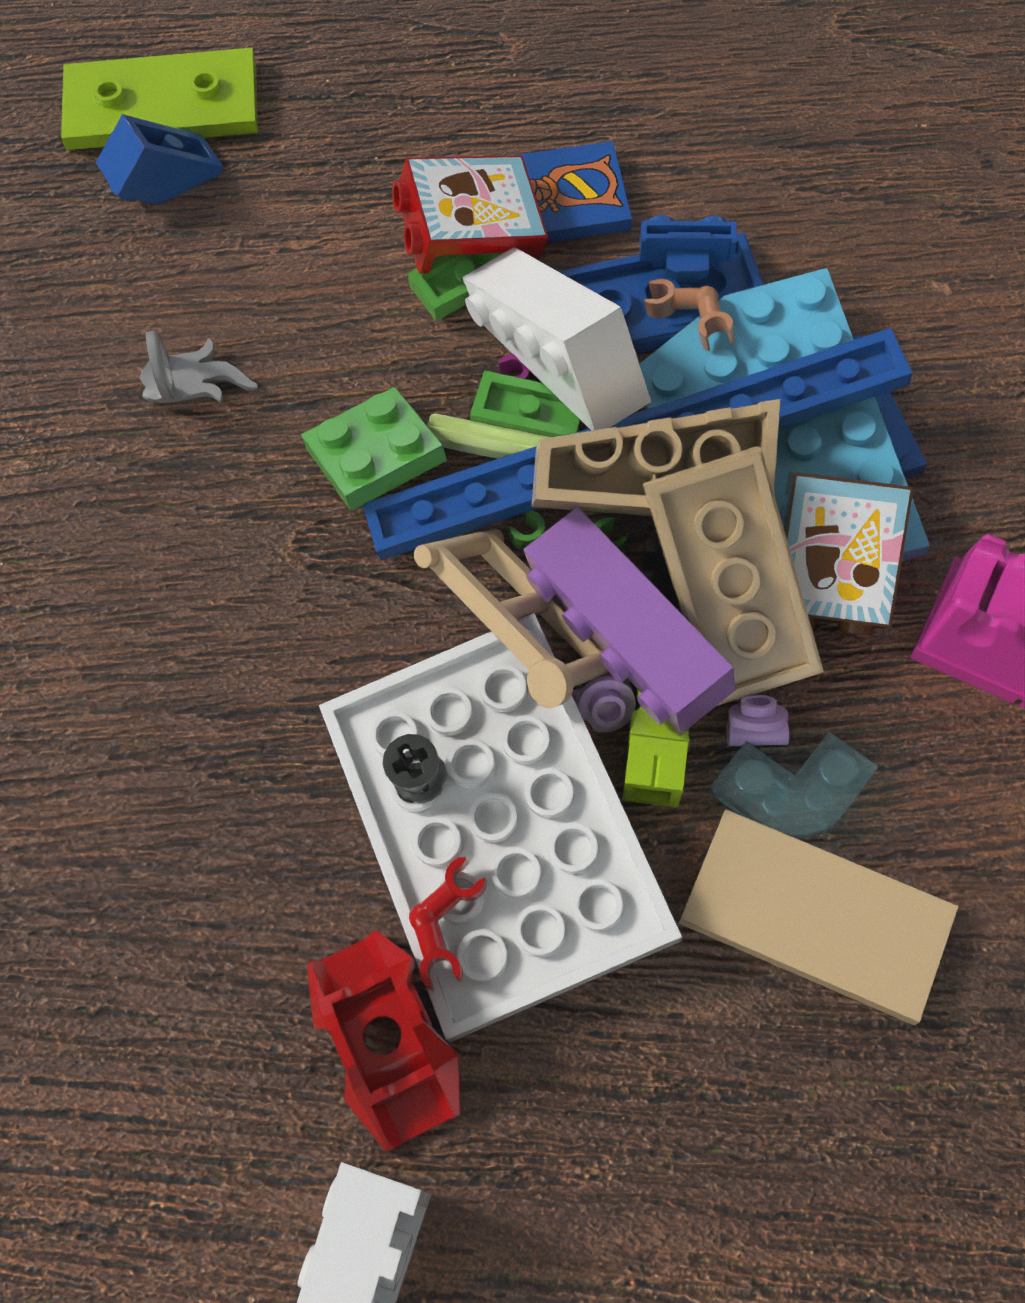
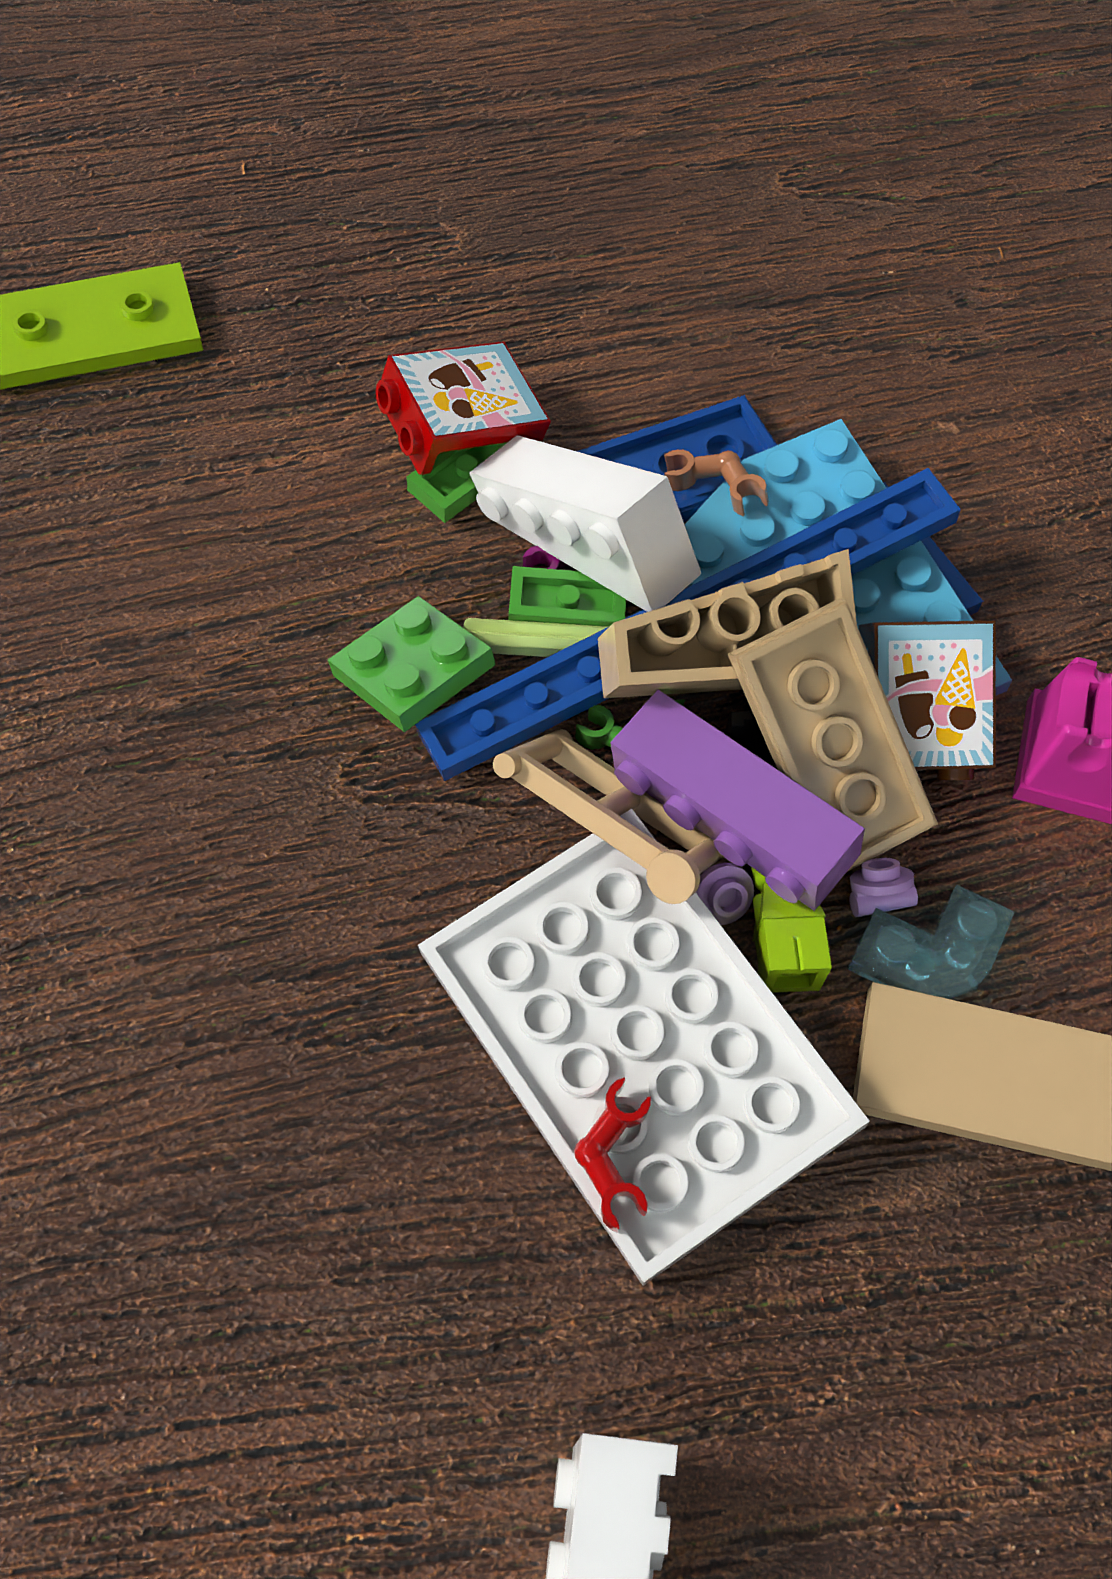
camera: 20 degrees left, 5 degrees down
(155, 161) = (98, 391): blue slope -> none
(186, 374) = (184, 613): light grey piece -> none
(393, 1092) = (623, 1331): red piece -> none
(396, 768) = (552, 973): pearl dark grey bush -> none
(579, 191) = (568, 371): blue tile -> none
(687, 247) = (695, 415): blue piece -> none

